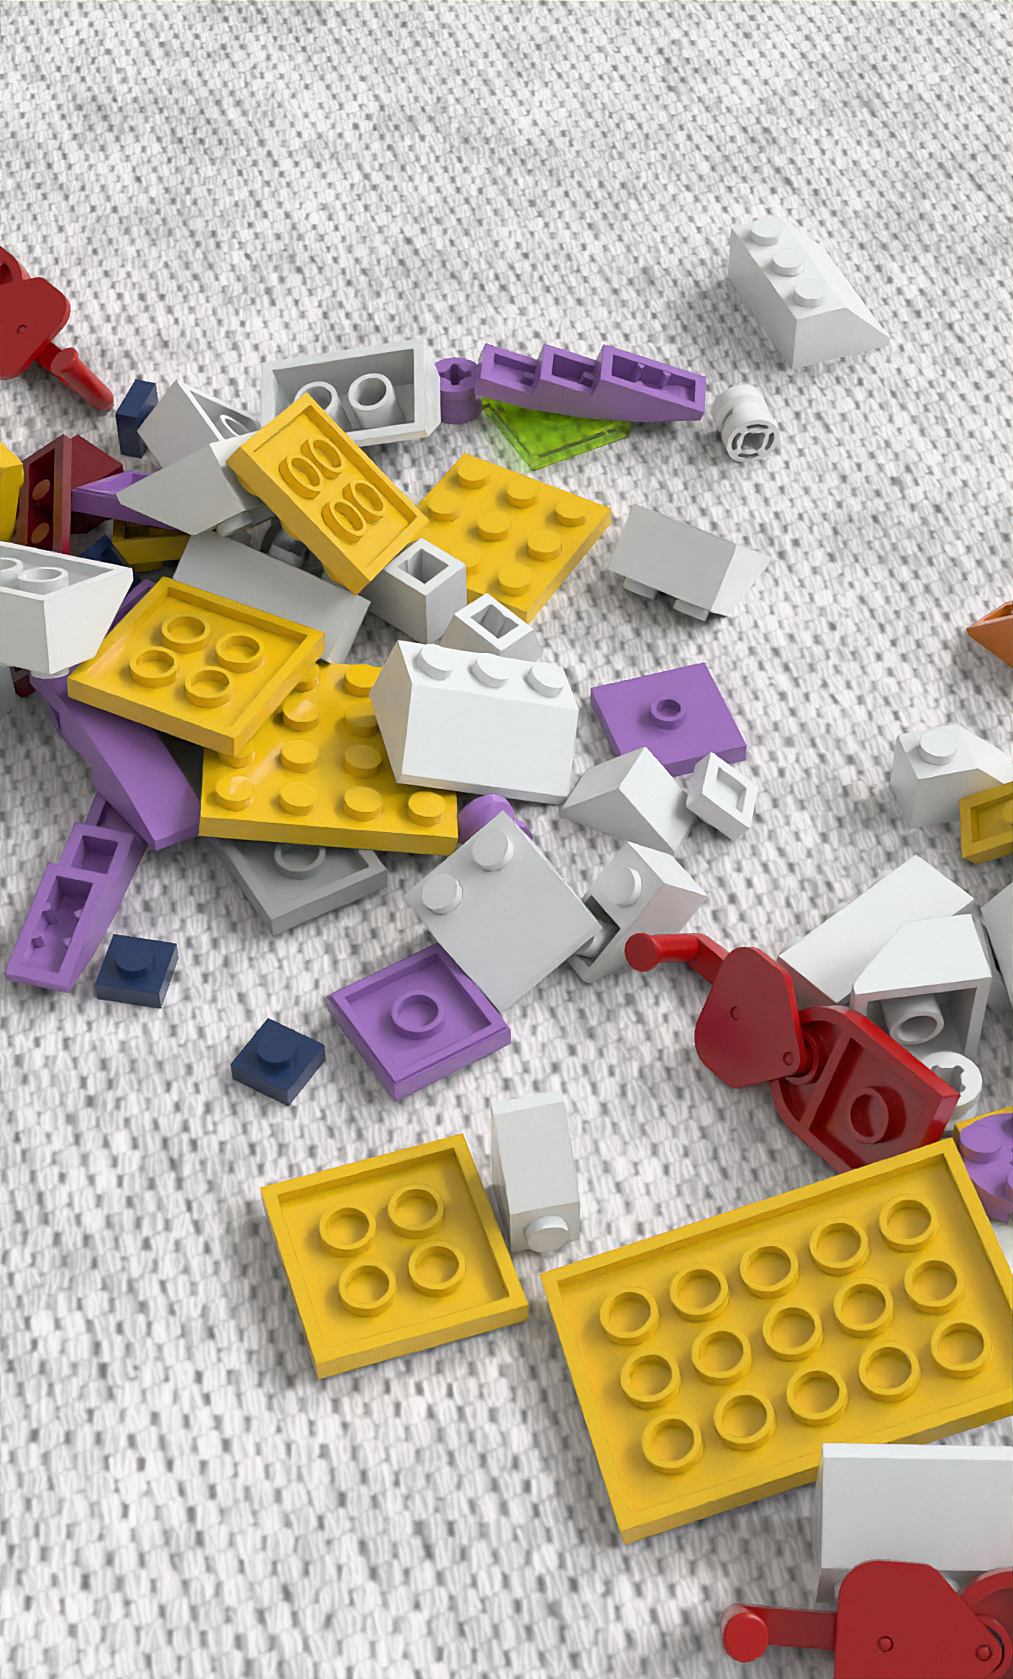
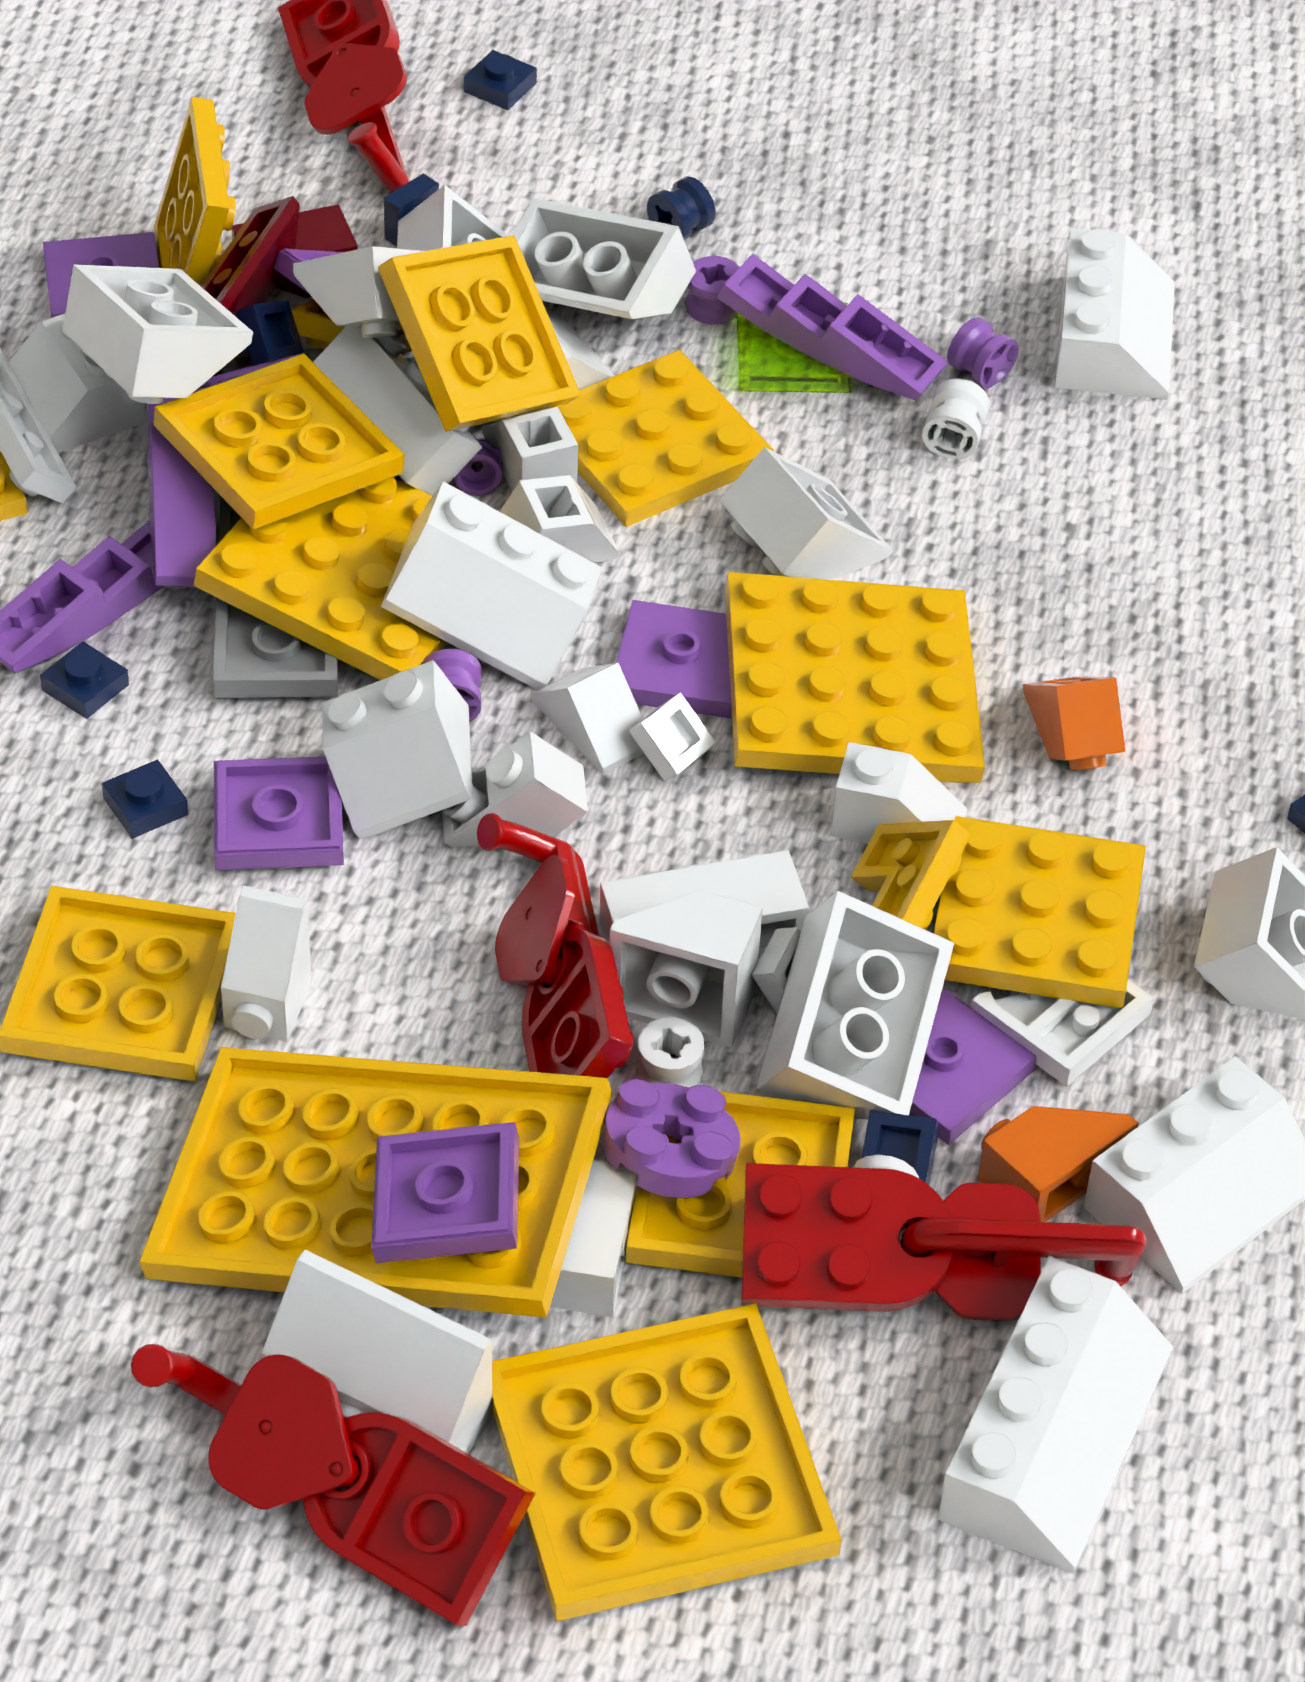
camera: 25 degrees right, 0 degrees up
(127, 279) = (500, 79): none -> dark blue plate
(374, 629) = (485, 479): none -> medium lavender plate
(377, 324) = (684, 206): none -> dark blue wheel
(723, 358) = (982, 352): none -> medium lavender wheel
(826, 679) = (854, 666): none -> yellow plate
(897, 1320) = (446, 1192): none -> medium lavender plate

